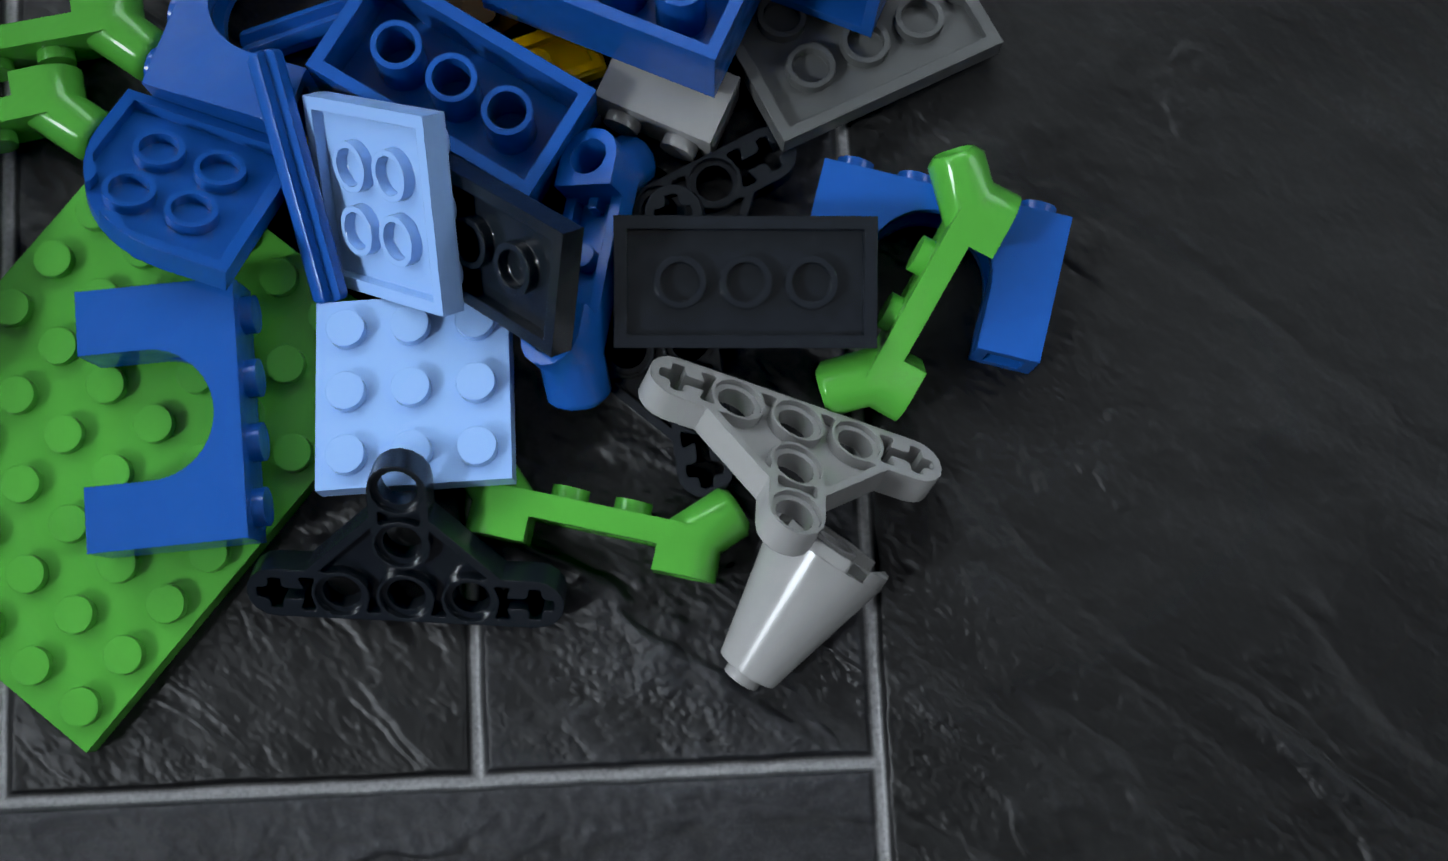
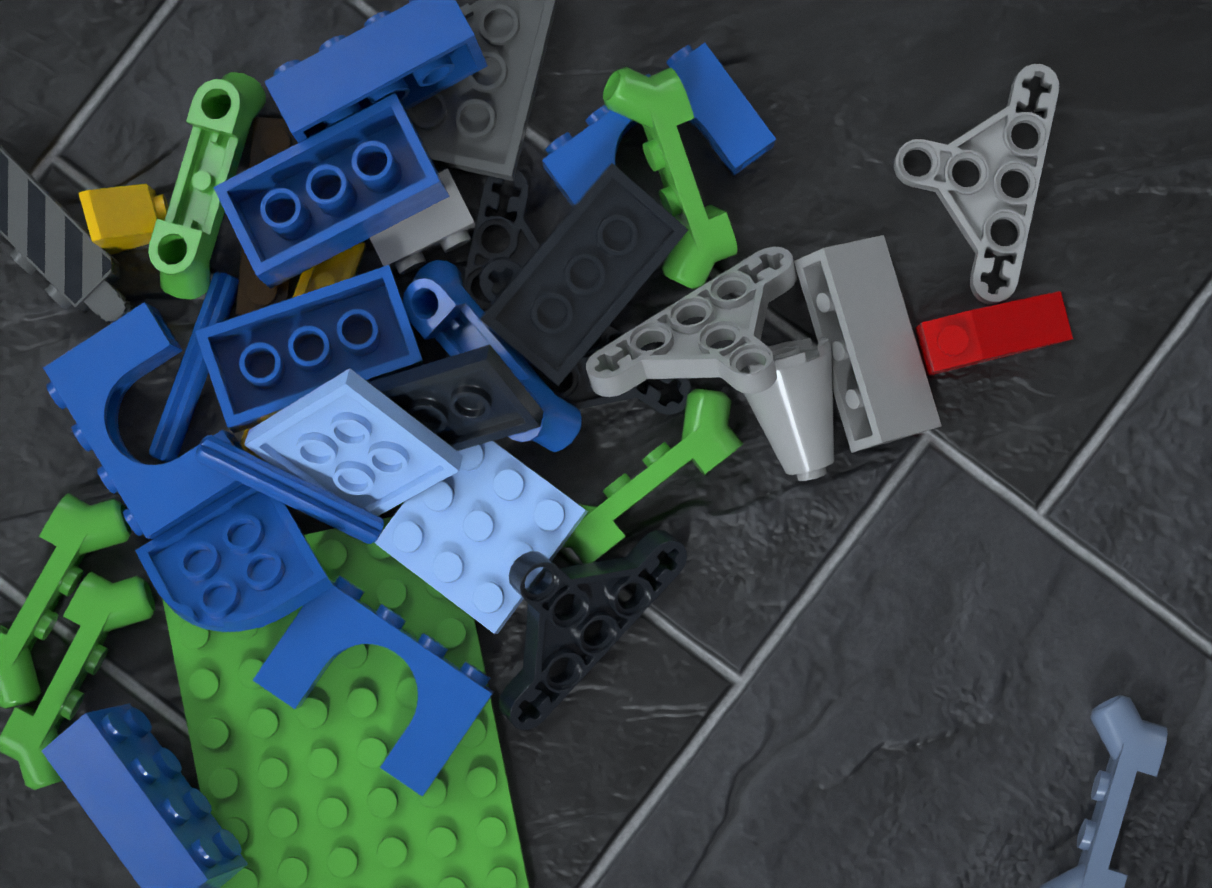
camera: 45 degrees left, 5 degrees up
(920, 629) = (873, 347): none -> light grey brick
(1035, 740) = (993, 332): none -> red slope
(1208, 592) = (994, 154): none -> light grey beam

